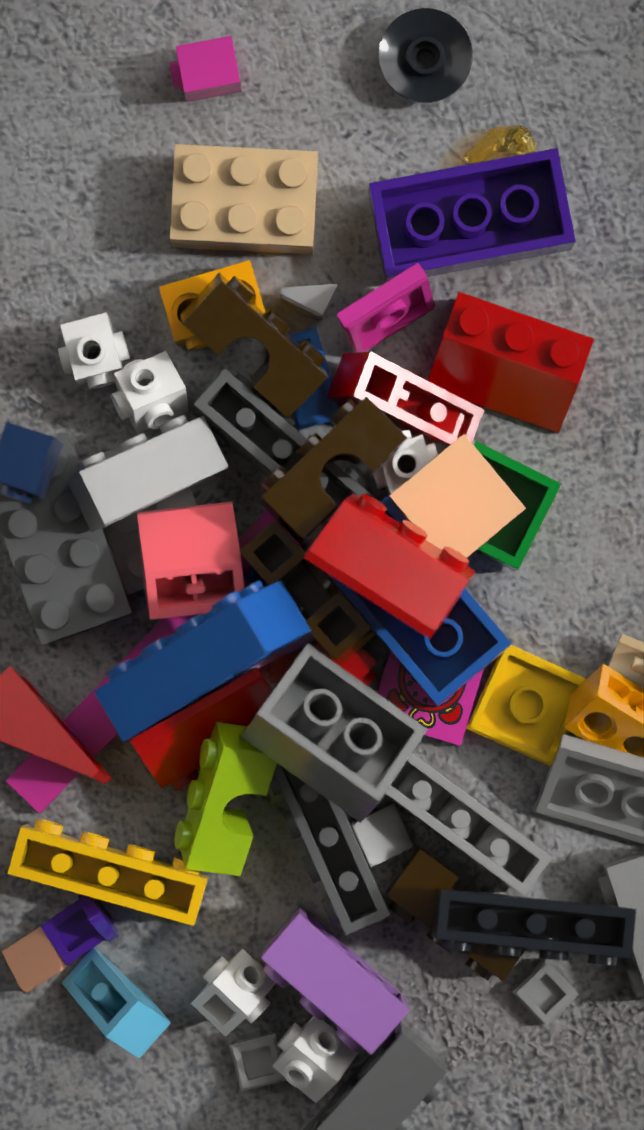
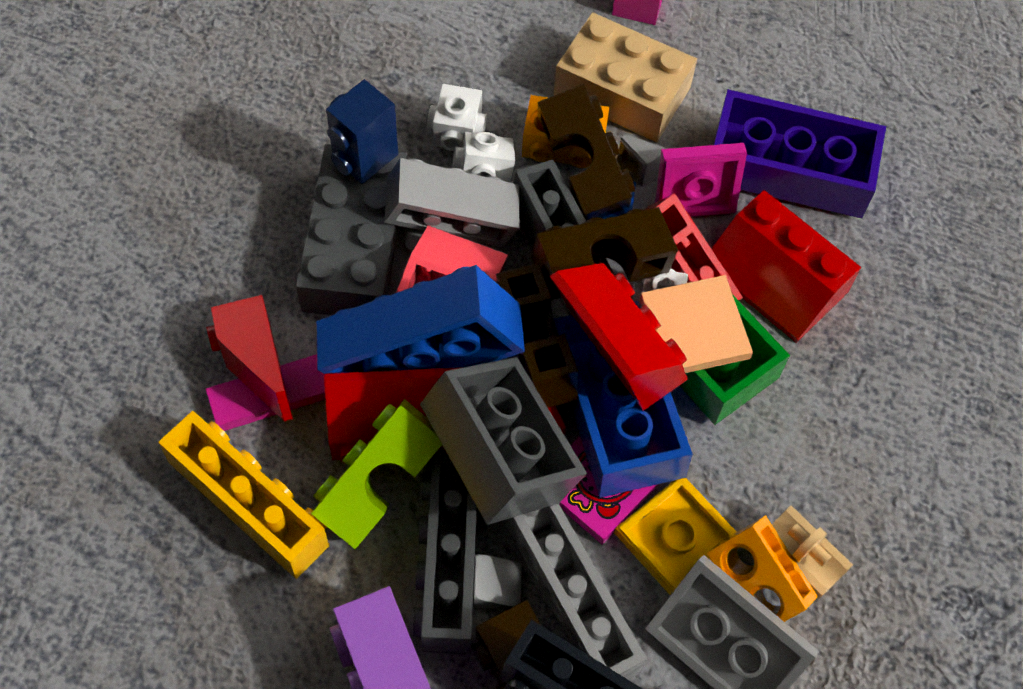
camera: 20 degrees right, 25 degrees down
(33, 960) = (138, 545): nougat slope -> none
(79, 928) = (193, 537): dark purple tile -> none
(115, 1003) = (184, 615): medium azure slope -> none
(234, 992) = (292, 649): white brick -> none
(428, 32) = (804, 48): black dish -> none

